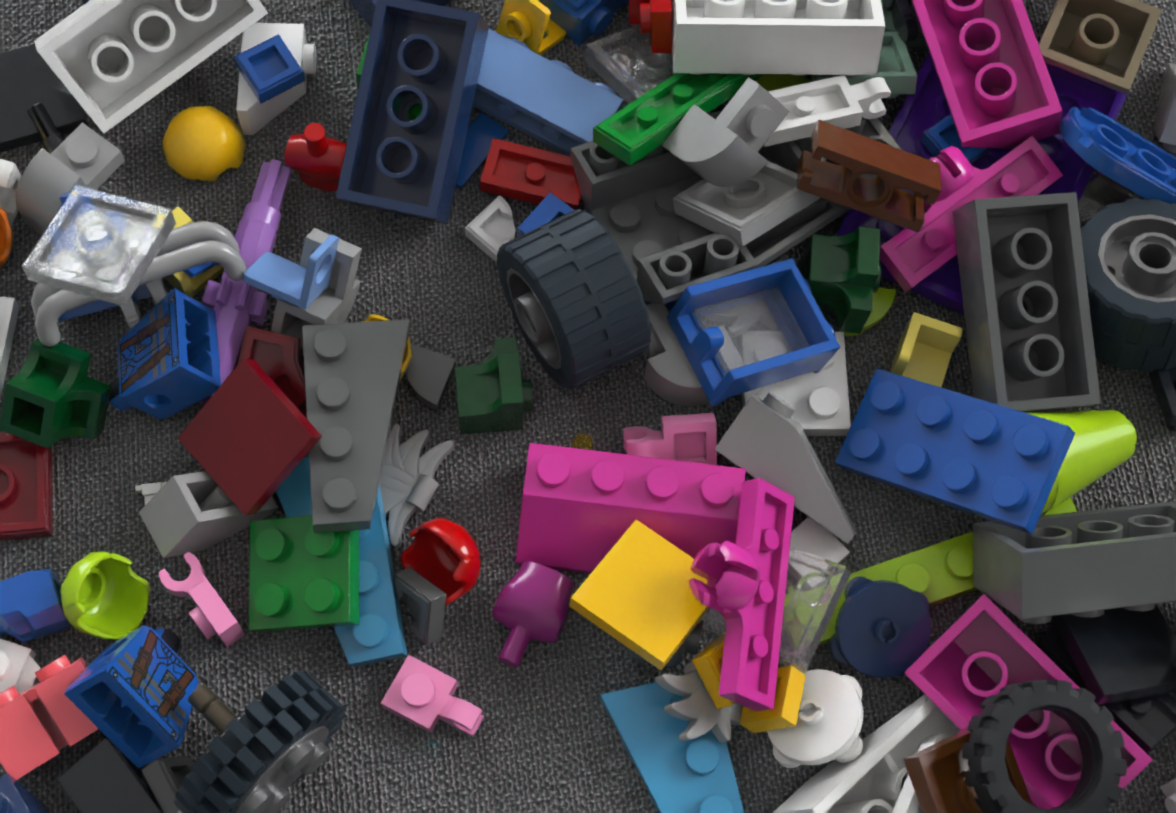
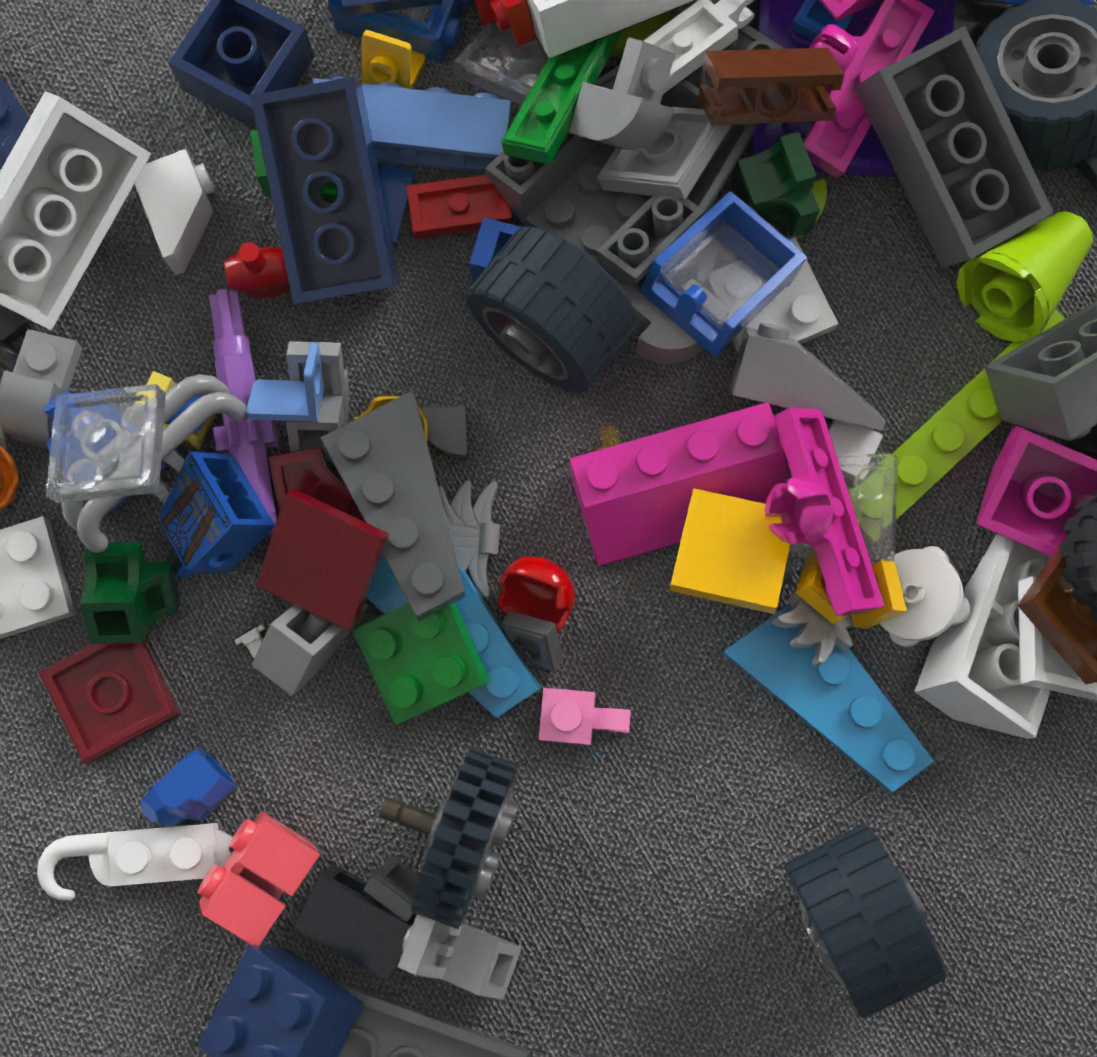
camera: 15 degrees left, 10 degrees up
(104, 596) = (257, 751): lime hair -> none
(138, 694) = (329, 825): blue torso -> none
(203, 143) = (144, 300): yellow hair -> none
(211, 612) = (355, 725): bright pink plate -> none
(269, 68) = (175, 205): blue tile -> none
(492, 227) = (444, 271): white tile -> none
(492, 392) = (514, 421): dark green brick -> none
(533, 608) = (632, 600): magenta piece -> none
(680, 439) = (696, 398): bright pink plate -> none
(881, 627) = (939, 491): dark blue piece -> none
(926, 349) = (873, 228): light yellow panel -> none
(955, 449) = (945, 307): blue plate -> none

